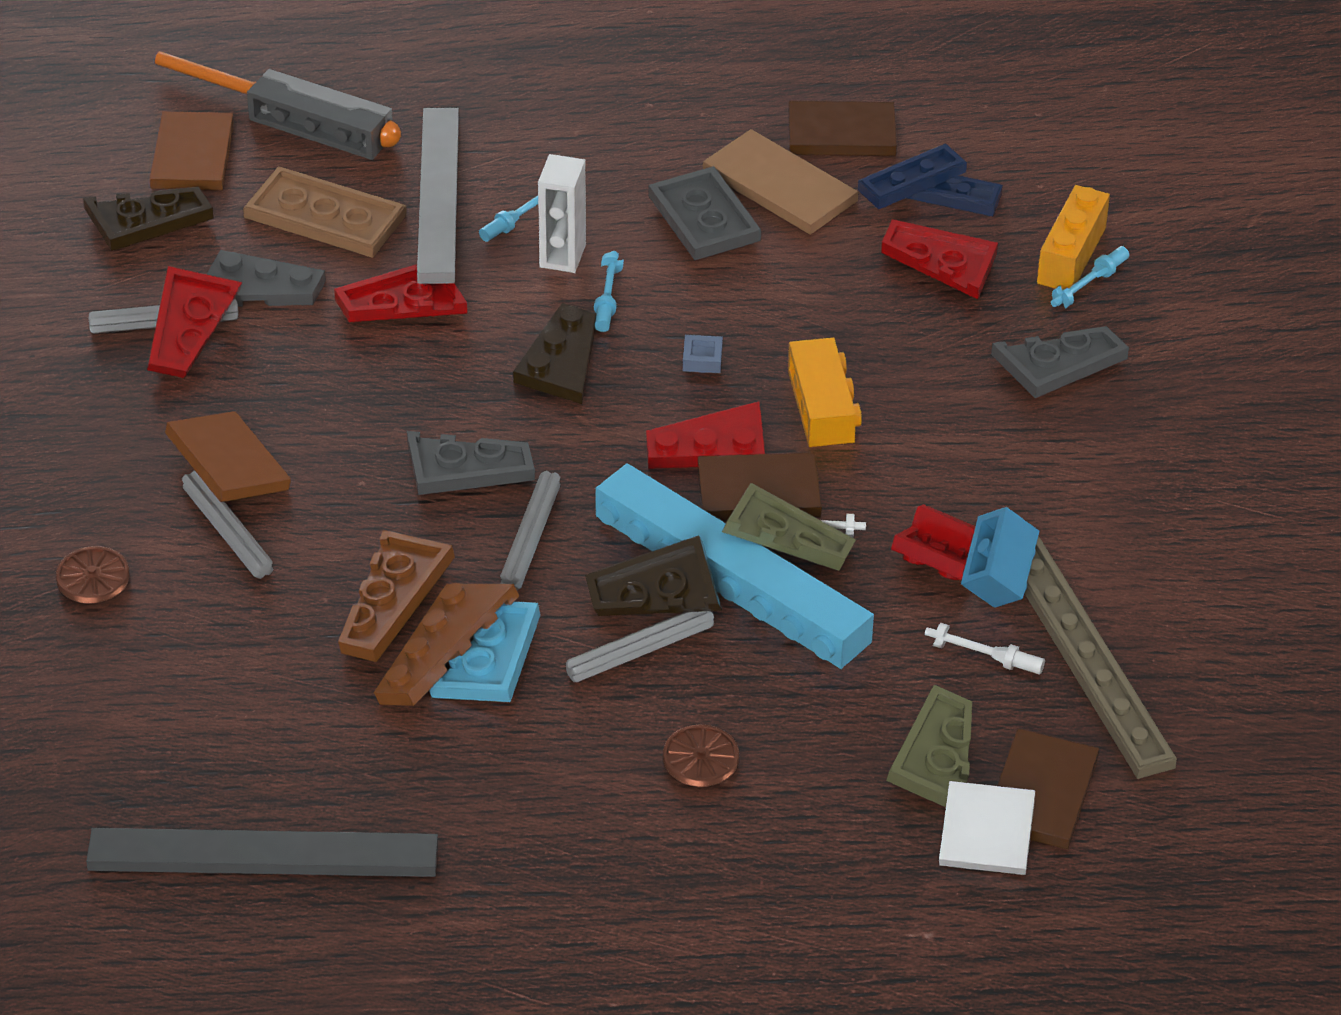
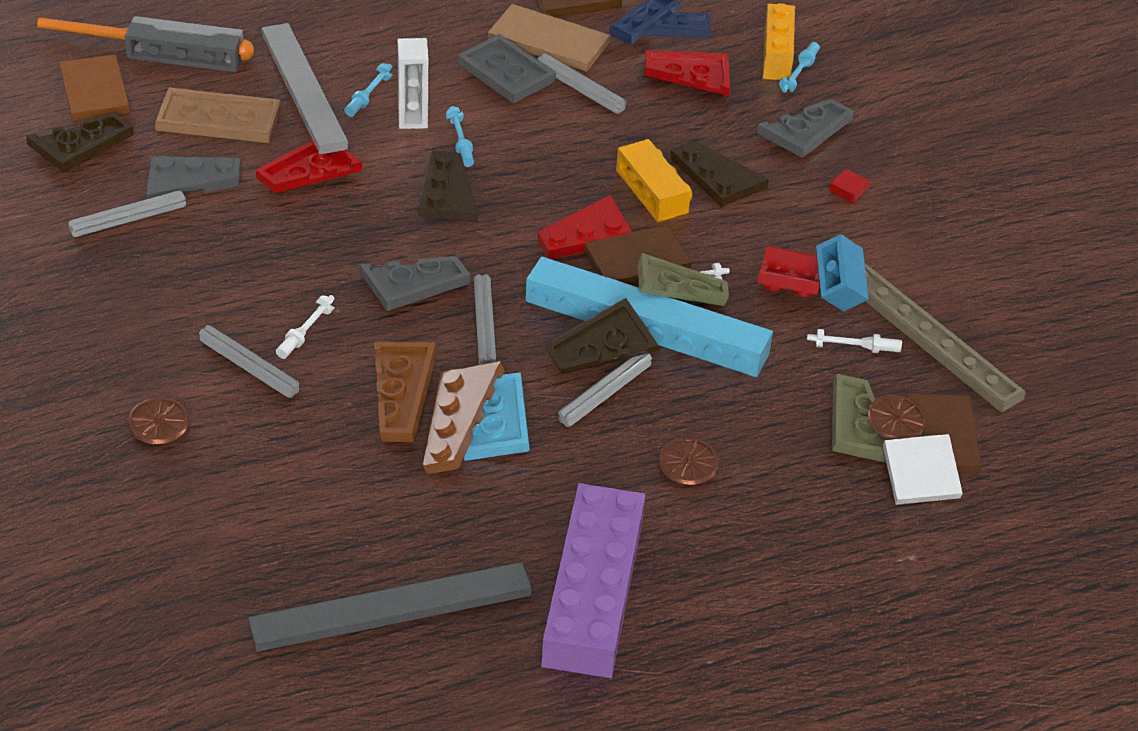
camera: 20 degrees left, 0 degrees up
(187, 318) = (151, 211): red wing -> none
(227, 456) = (228, 309): dark orange tile -> none
(293, 506) = (295, 337): none -> white piece
(510, 874) = (593, 581): none -> medium lavender brick
(702, 354) = (553, 168): sand blue plate -> none
(793, 249) = (584, 84): none -> light grey axle
(913, 399) = (716, 174): none -> dark brown wing
(985, 756) = (896, 417): none -> copper wheel
(1079, 446) = (849, 185): none -> red tile

